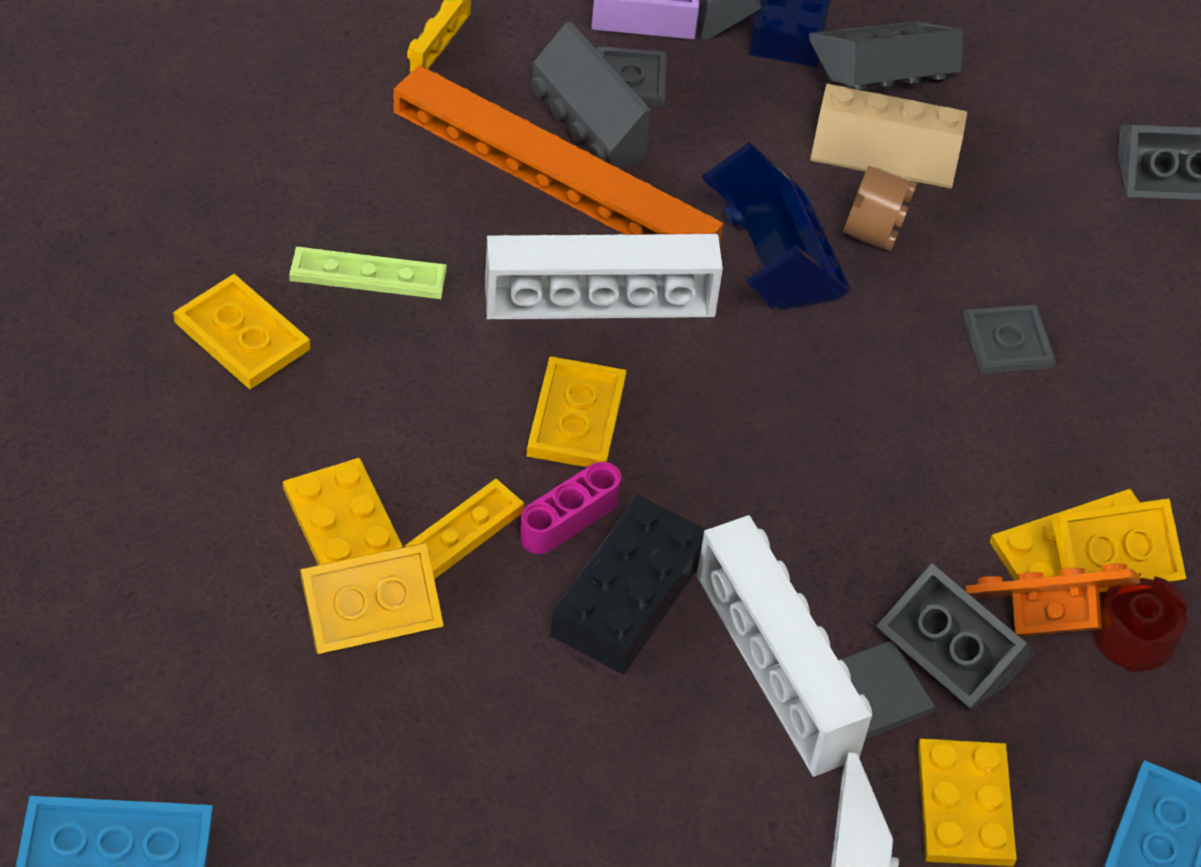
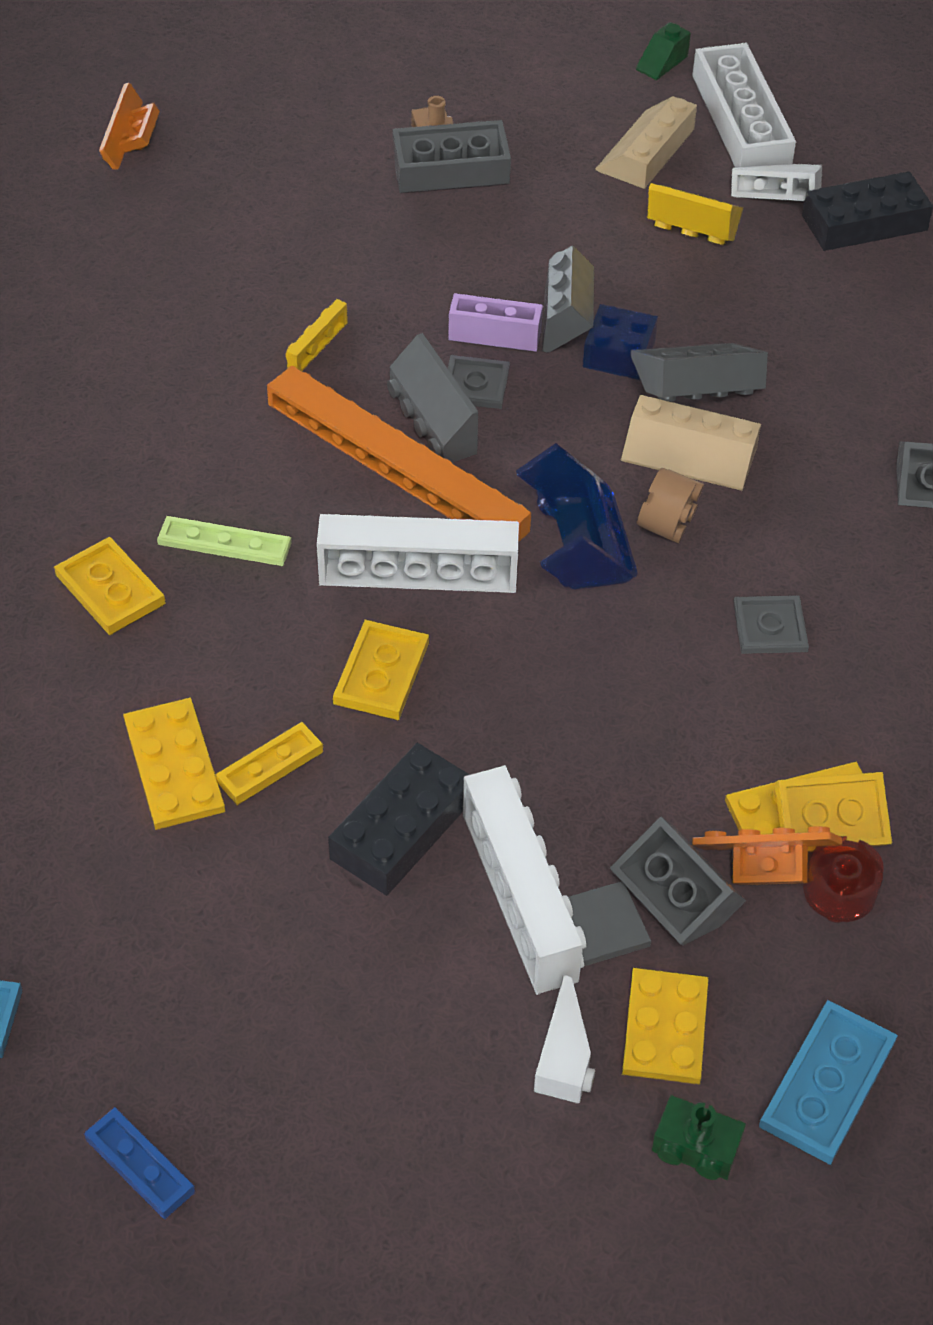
camera: 10 degrees right, 0 degrees up
(371, 598) = (179, 817): yellow plate -> none
(570, 507) = (361, 750): dark pink beam -> none

